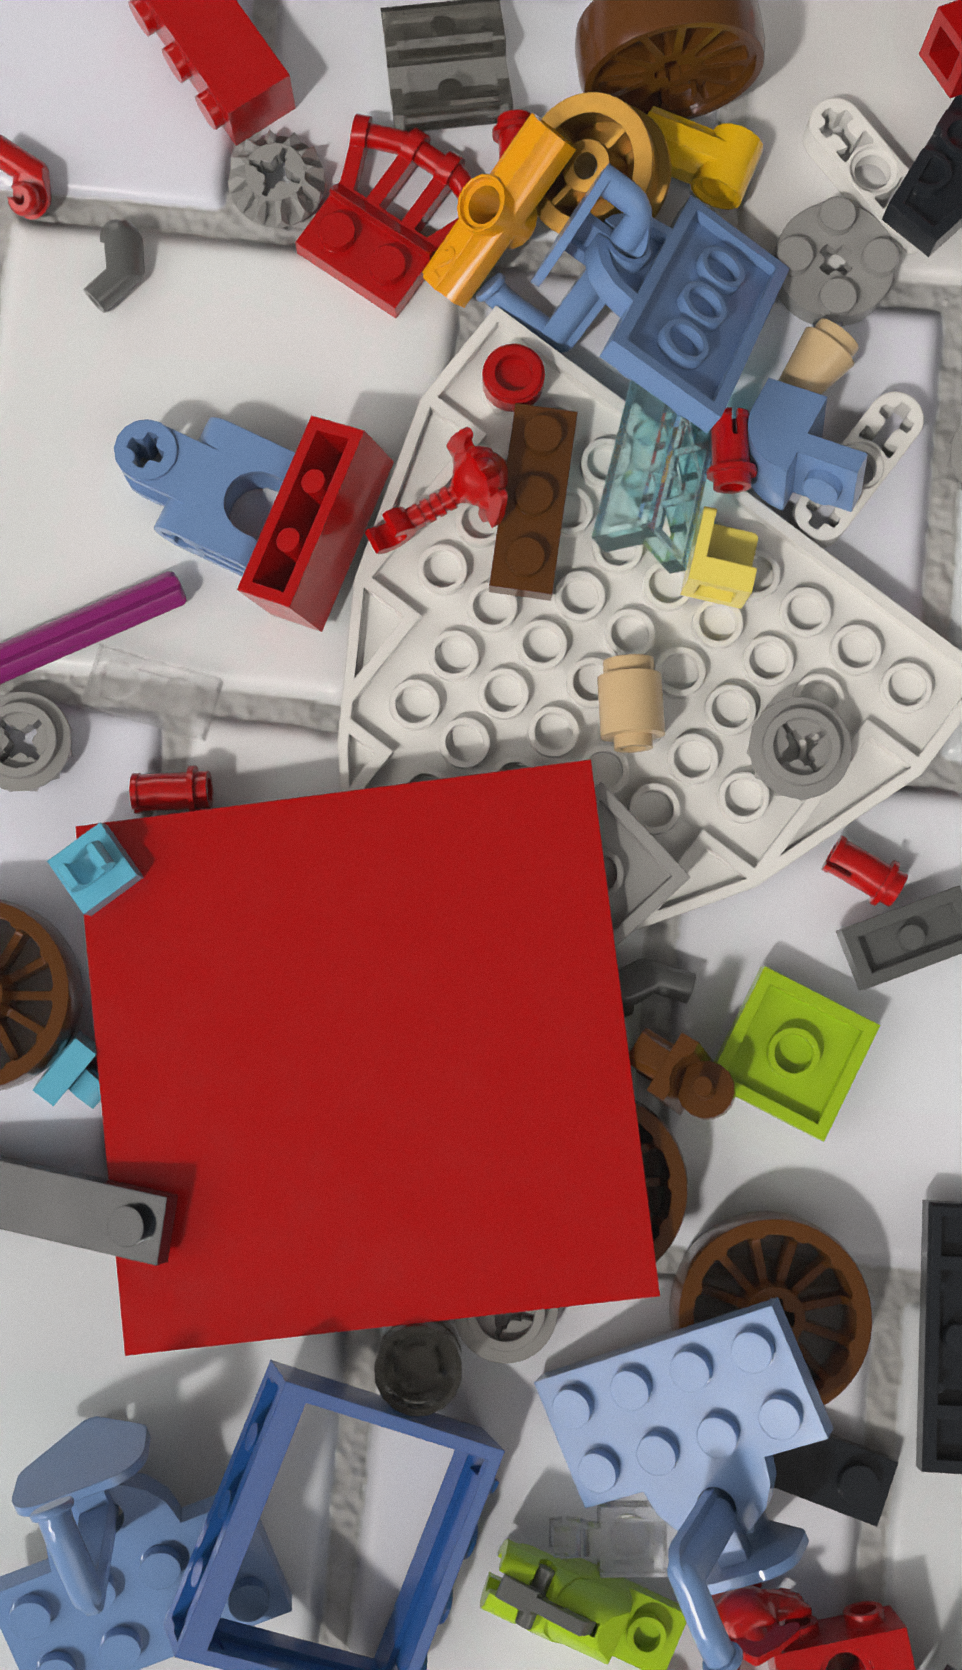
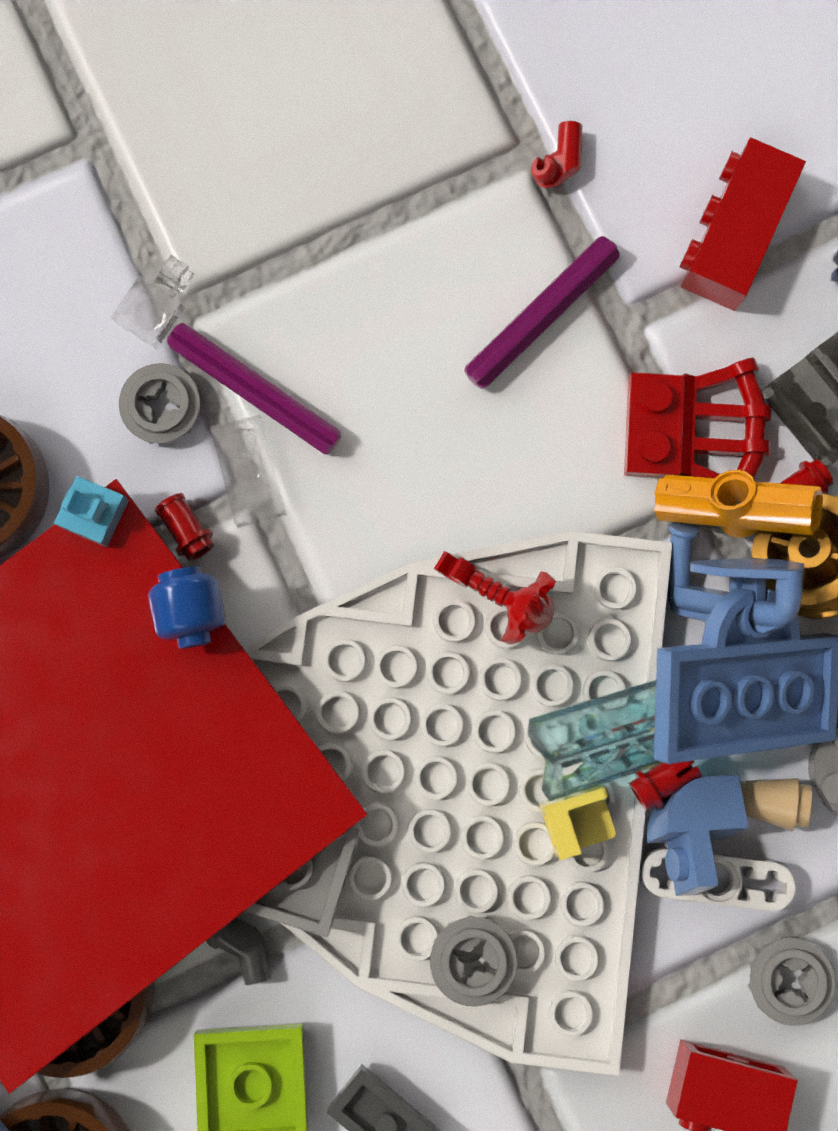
camera: 65 degrees right, 0 degrees up
(123, 264) = (542, 263): dark grey arm -> none
(175, 294) = (542, 312): none -> magenta axle
(201, 482) = (415, 416): medium blue piece -> none
(262, 817) = (186, 606): none -> blue head
(287, 202) = (658, 348): light grey gear -> none
(316, 523) = (429, 513): red brick -> none
(513, 376) = (624, 588): red tile -> none
(536, 502) = (540, 657): reddish brown plate -> none
(630, 703) = (431, 817): tan brick -> none
(683, 1075) = (181, 1014): reddish brown hips -> none
(865, 872) = (416, 1062): red pin -> none

